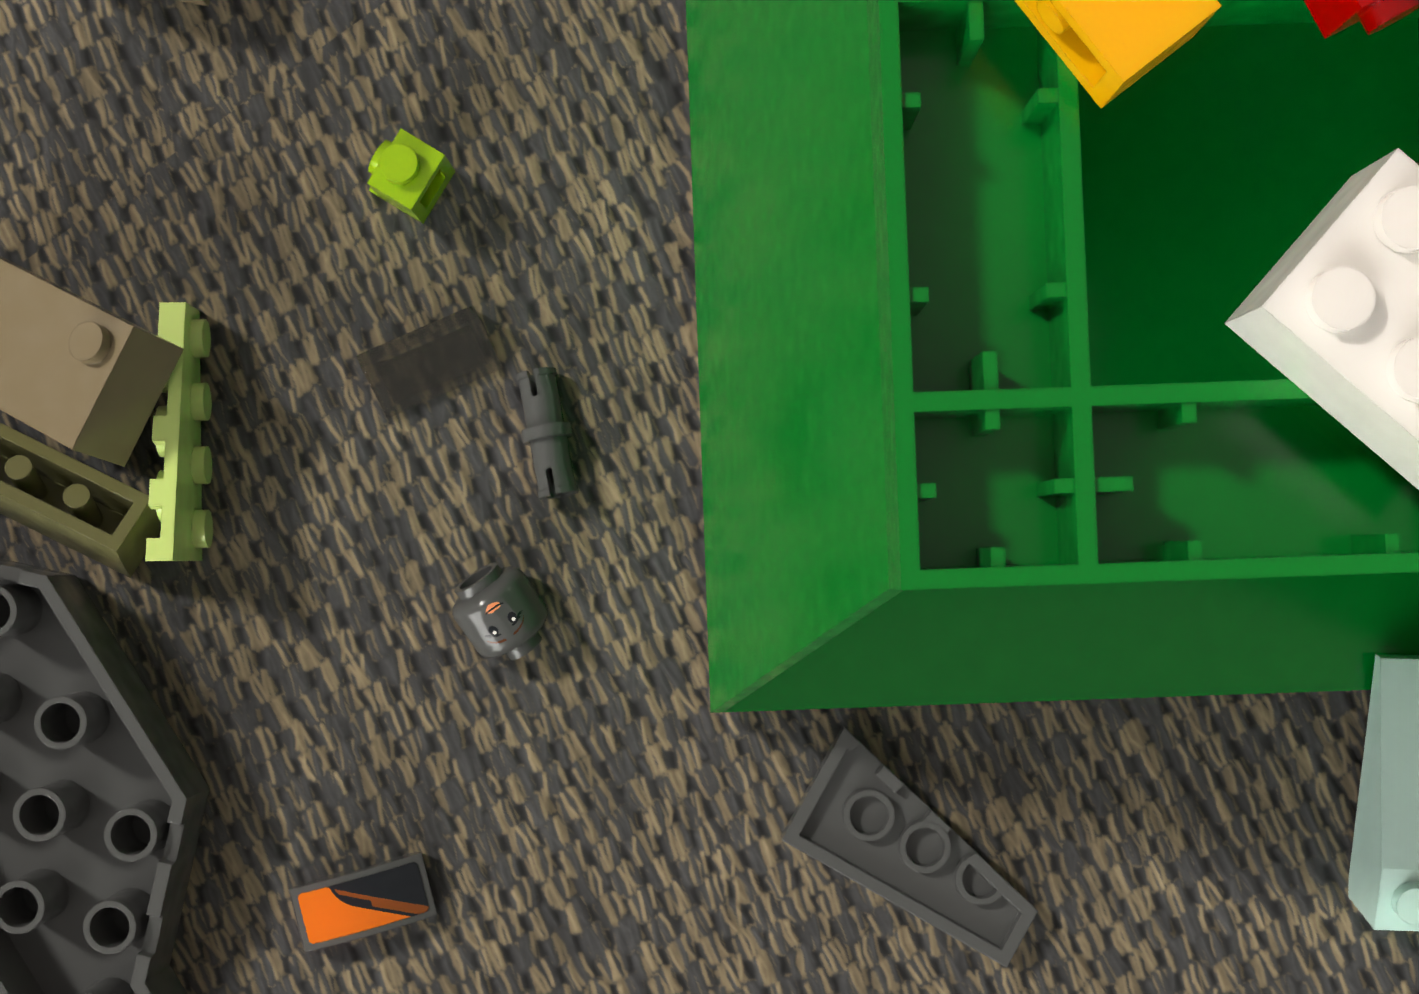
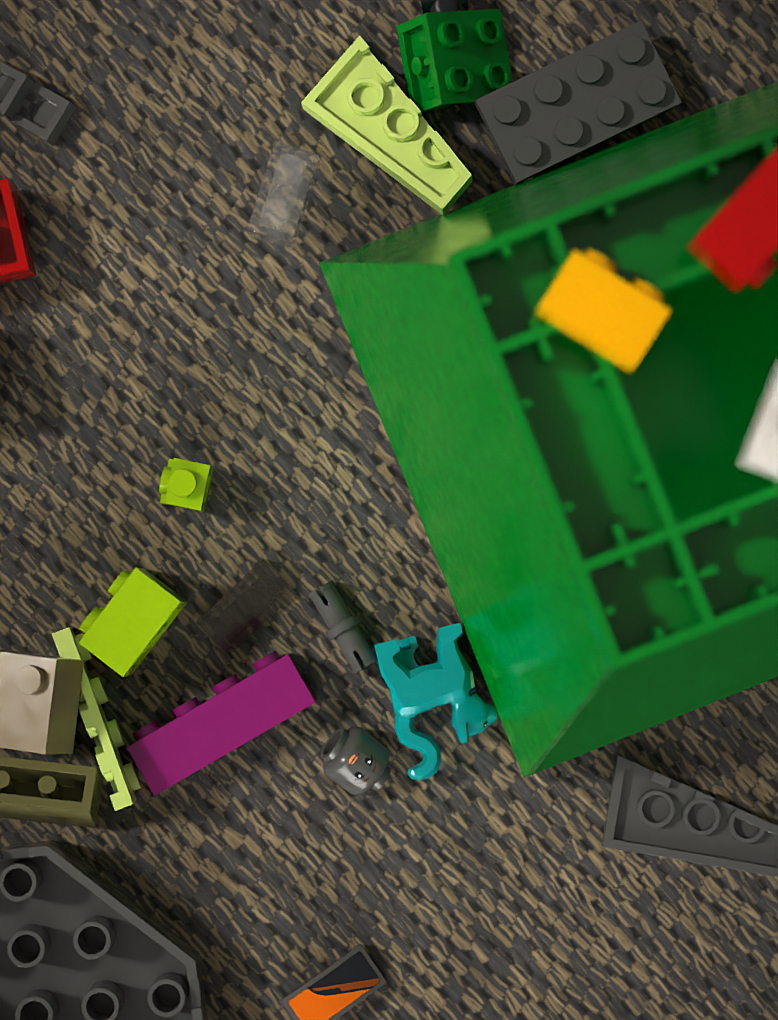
camera: 20 degrees left, 0 degrees up
(267, 322) = (131, 620): none -> lime brick
(342, 499) = (221, 723): none -> magenta brick
(630, 549) = (422, 688): none -> teal animal

